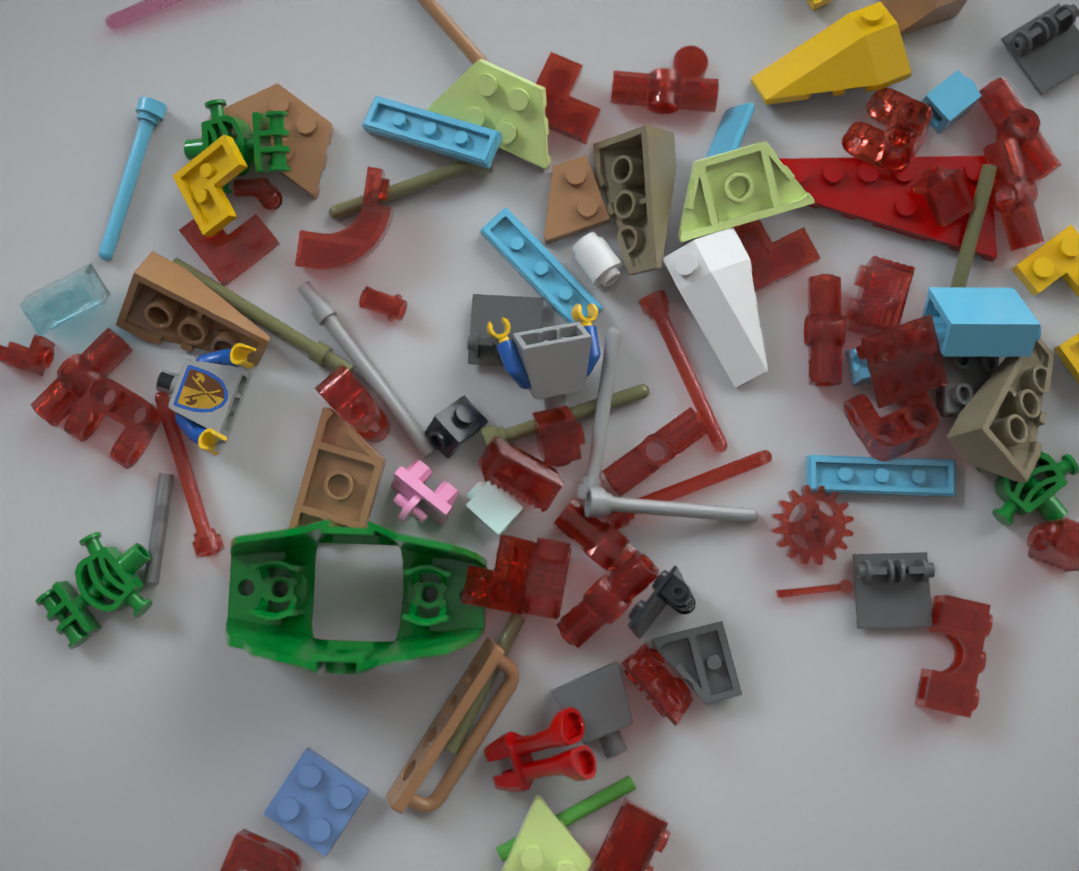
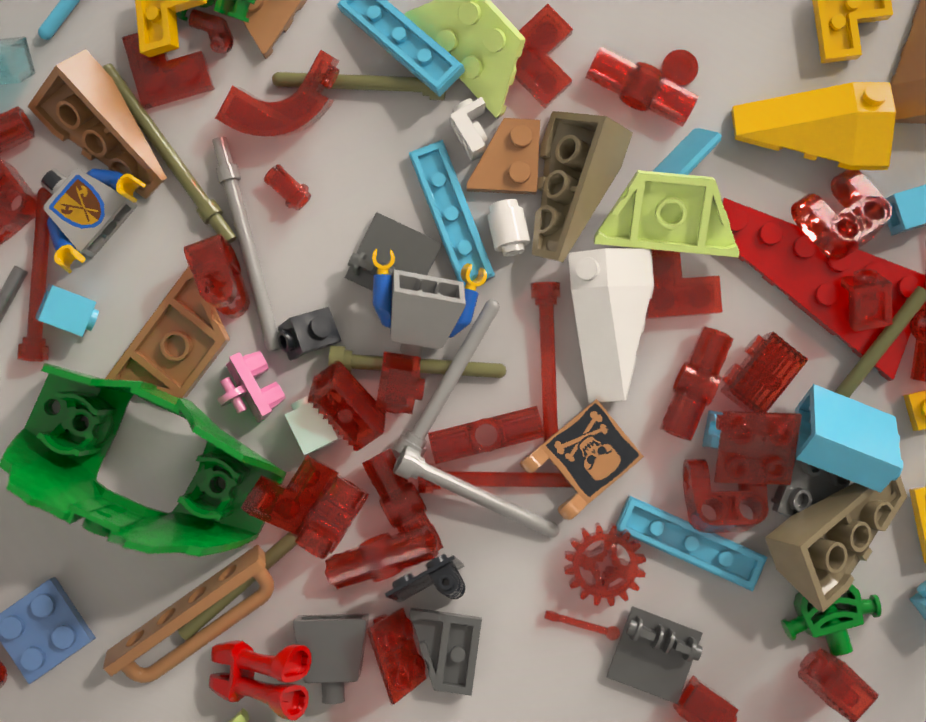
camera: 20 degrees right, 5 degrees up
(225, 492) = (67, 310): none -> medium azure brick
(528, 192) = (469, 134): none -> white bracket
(754, 431) = (589, 455): none -> flag

